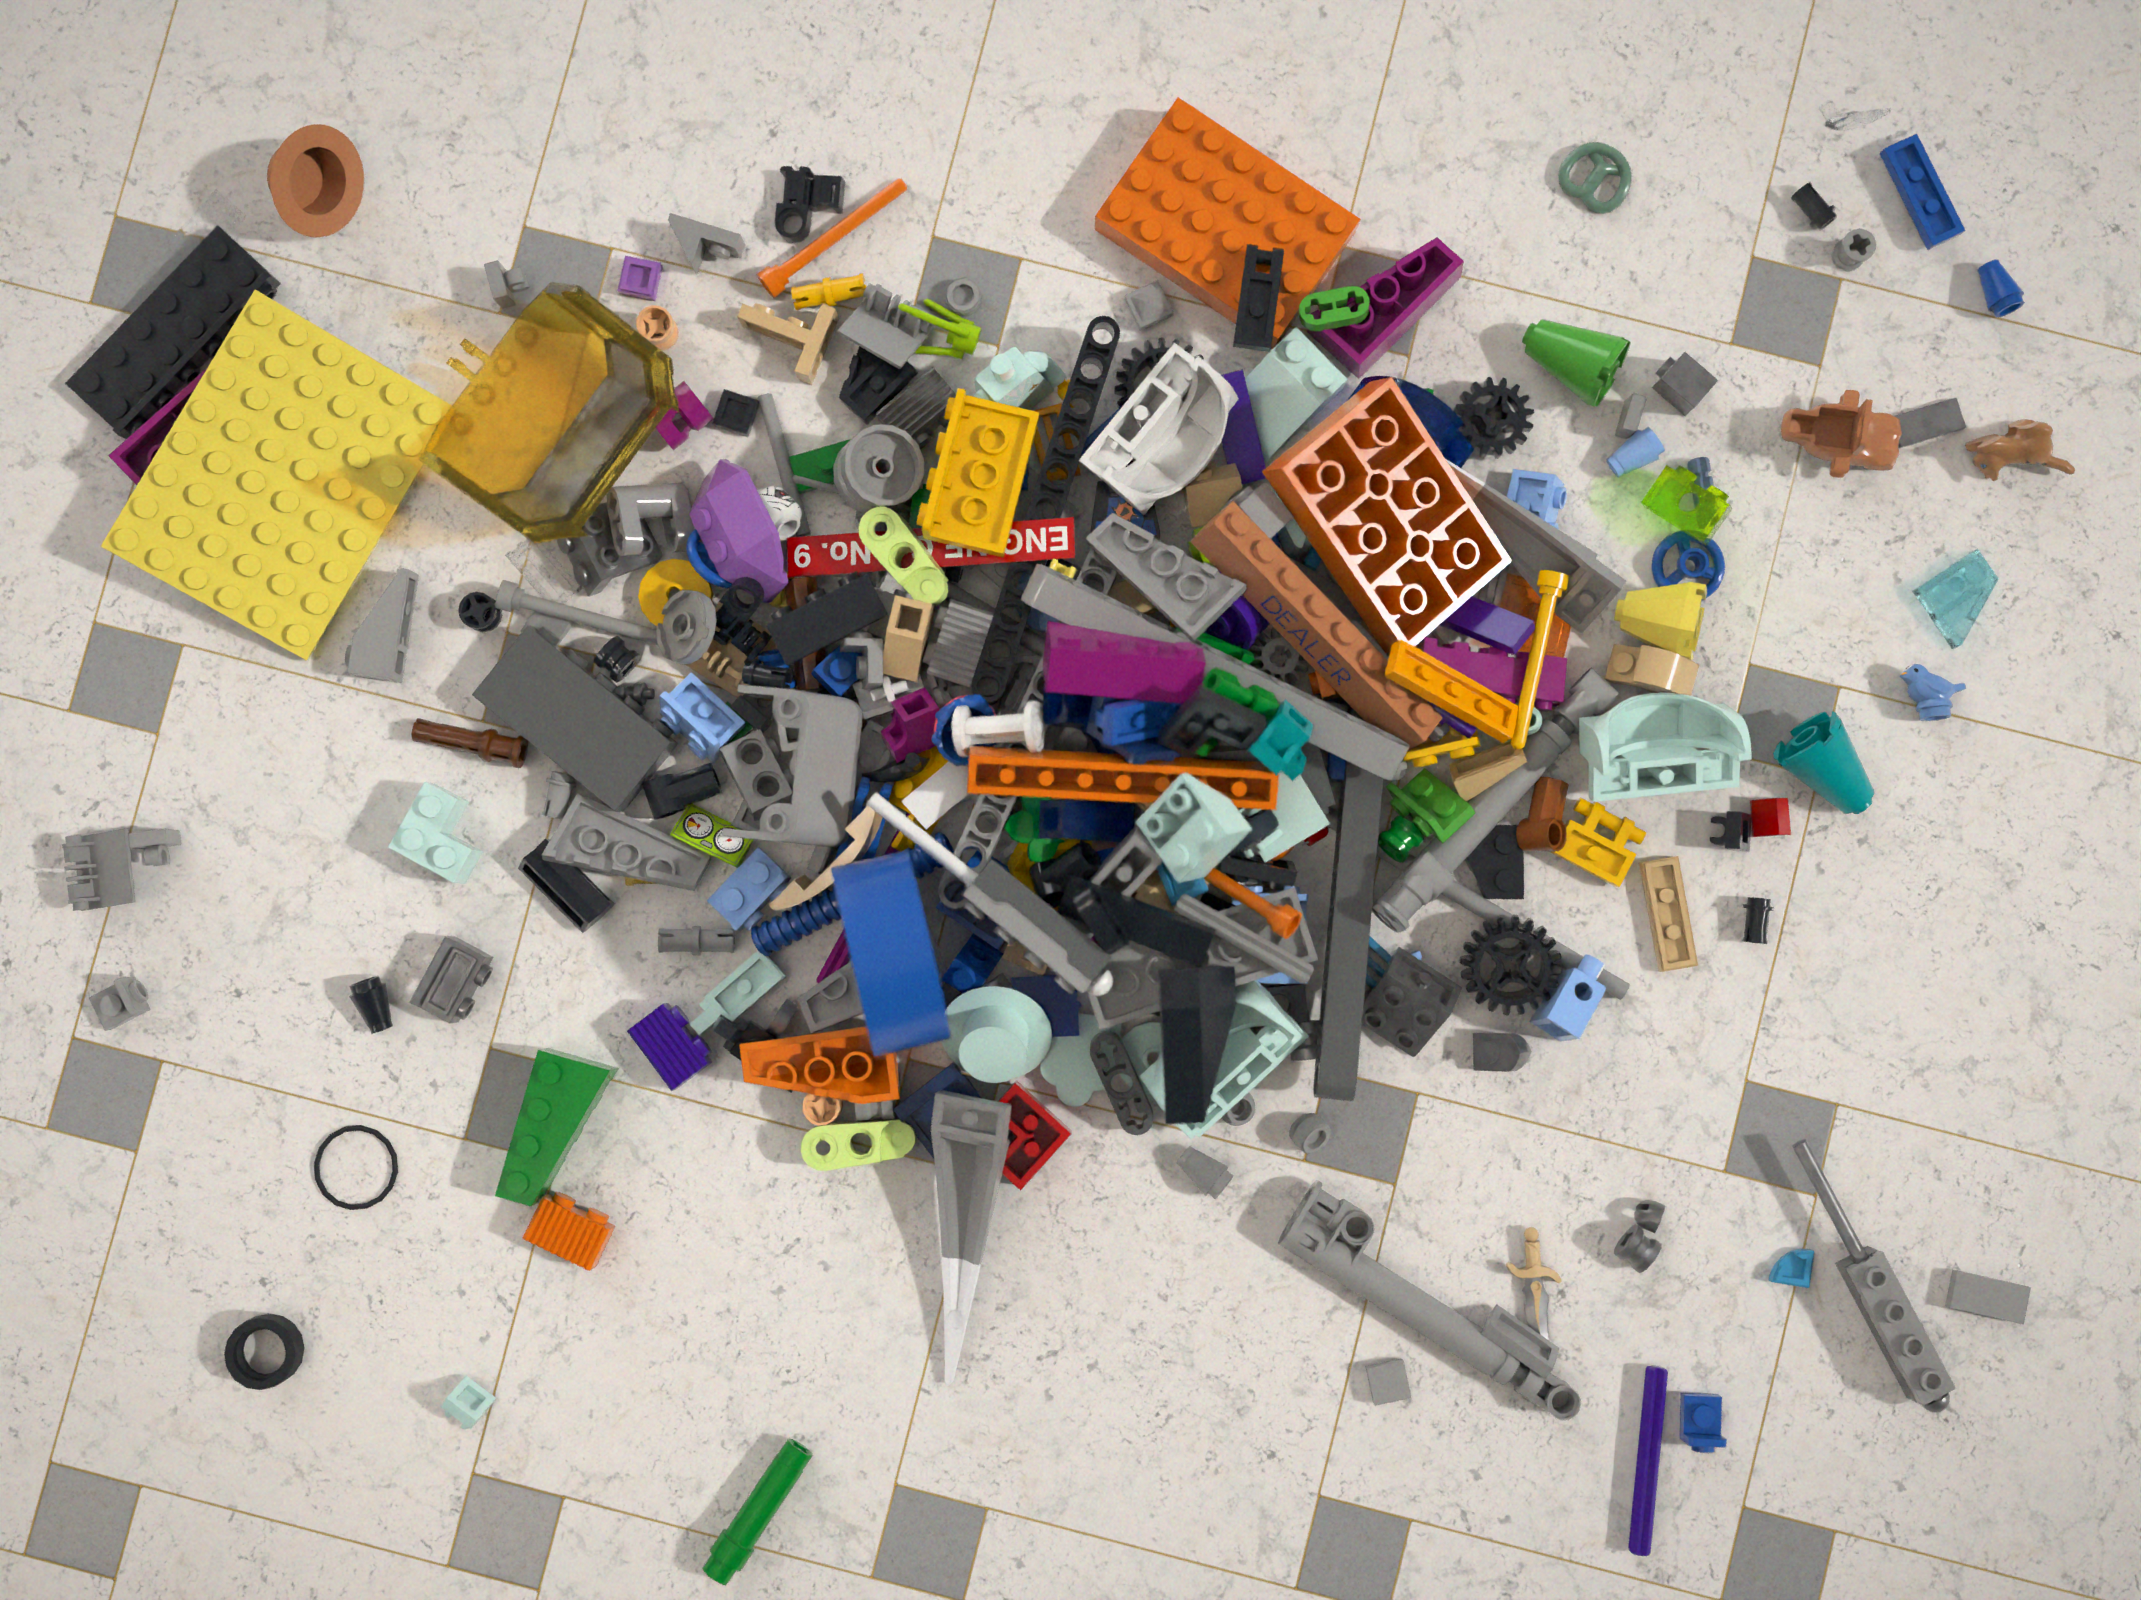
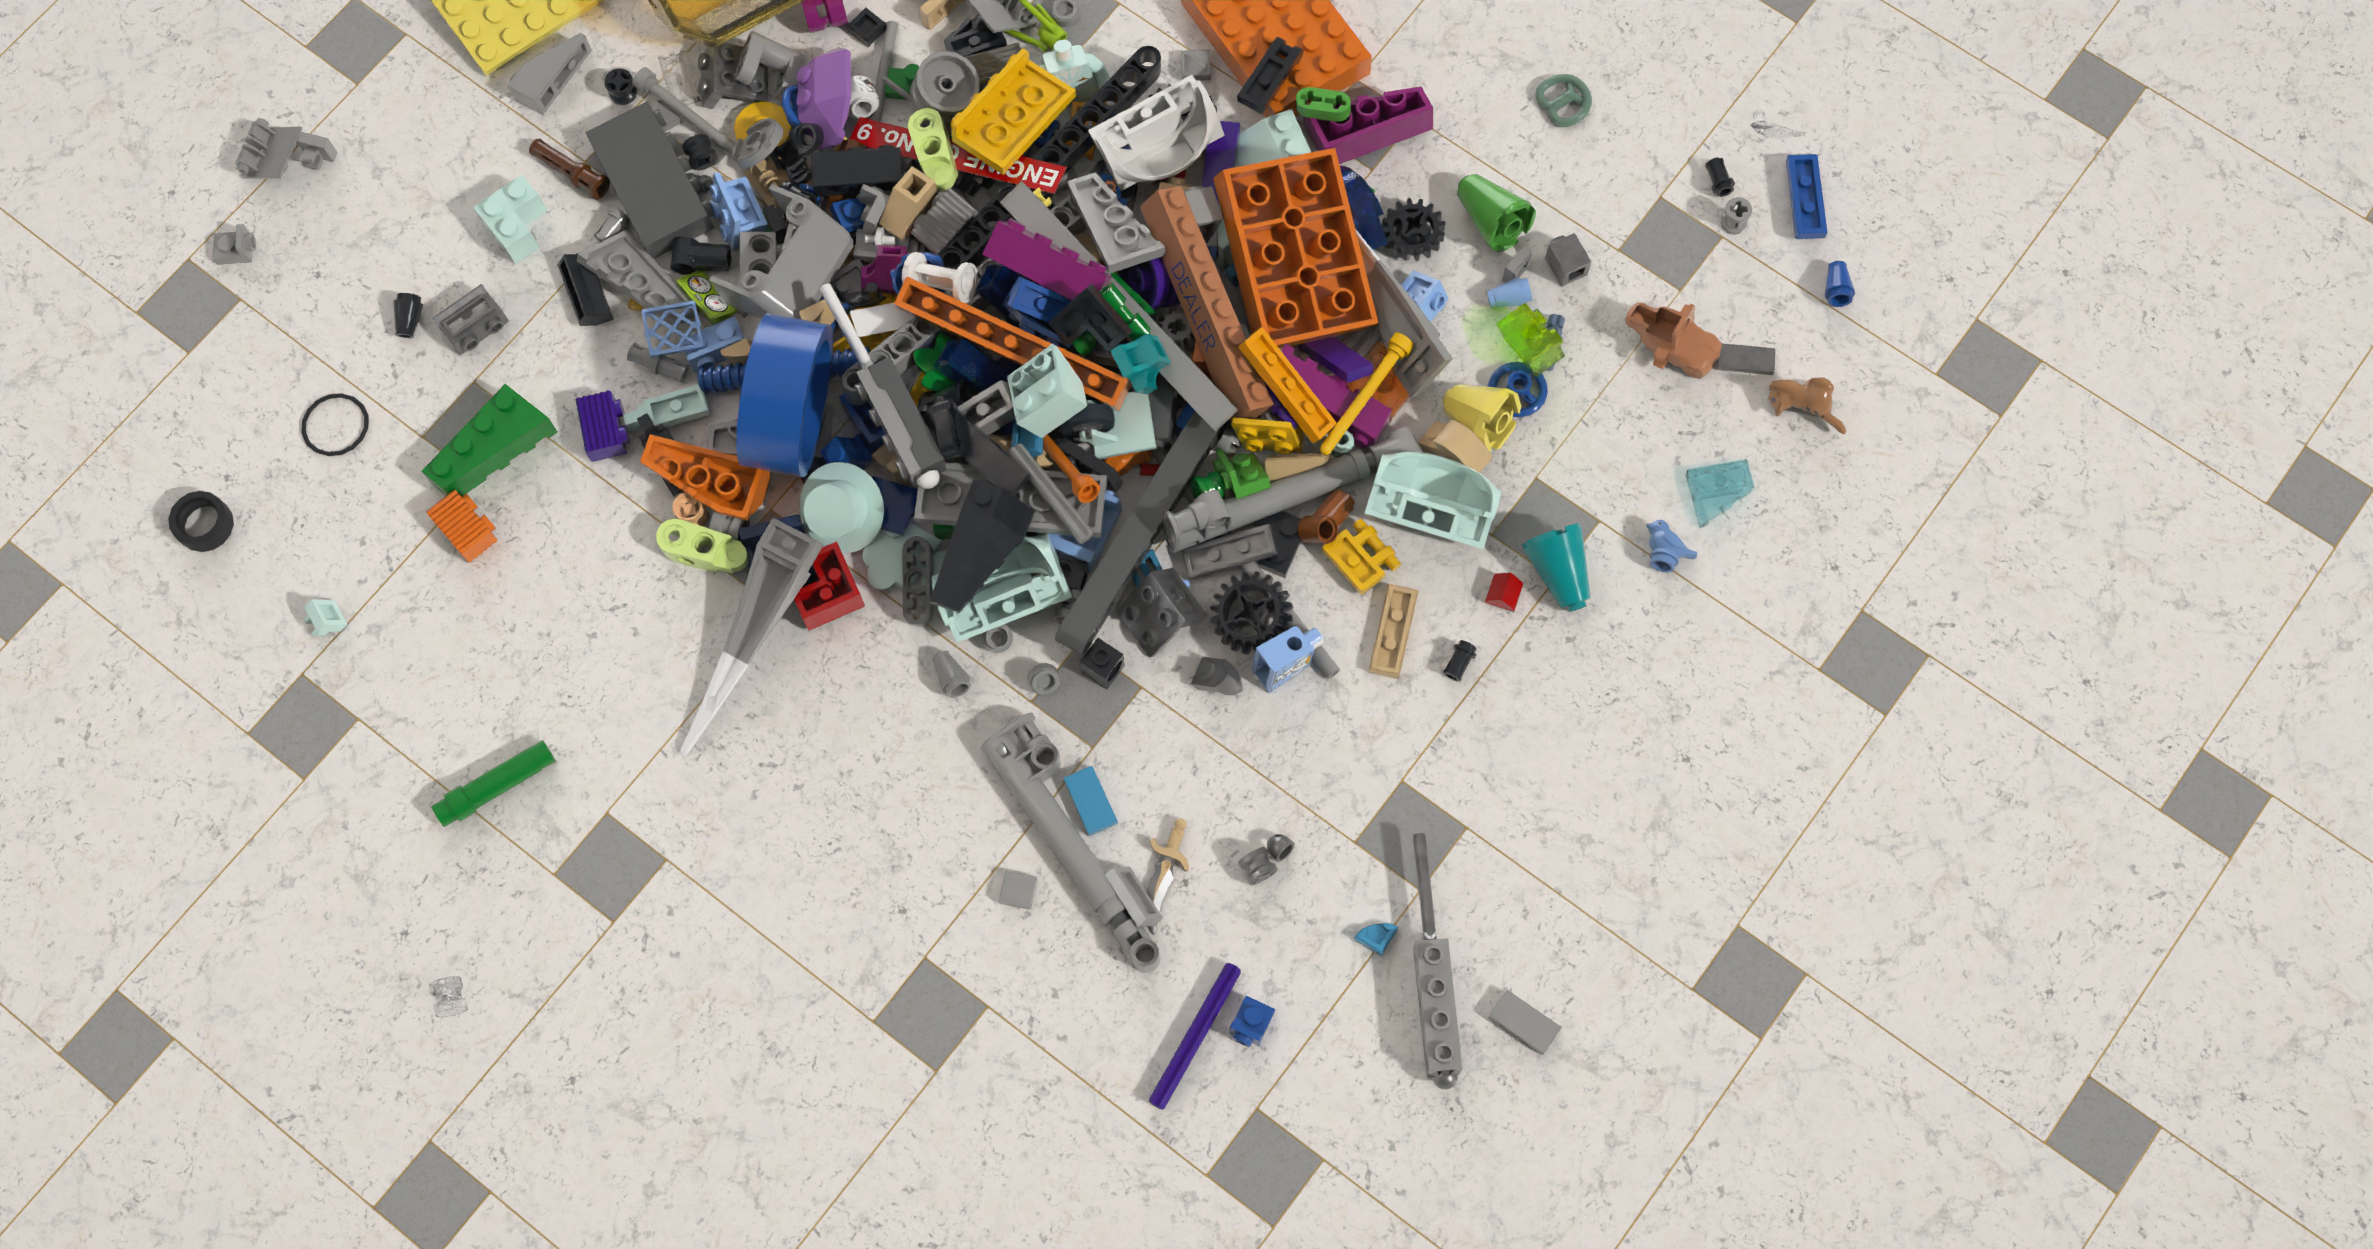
camera: 25 degrees right, 15 degrees down
(721, 881) = (681, 317): none -> light blue window
(782, 1018) = (694, 436): flat silver tile -> none
(1372, 1092) = (1102, 663): none -> black brick
(1422, 1249) = (1090, 800): none -> dark azure tile
(1463, 895) = (1229, 551): none -> flat silver tile
(1736, 833) = (1471, 587): black tile -> none

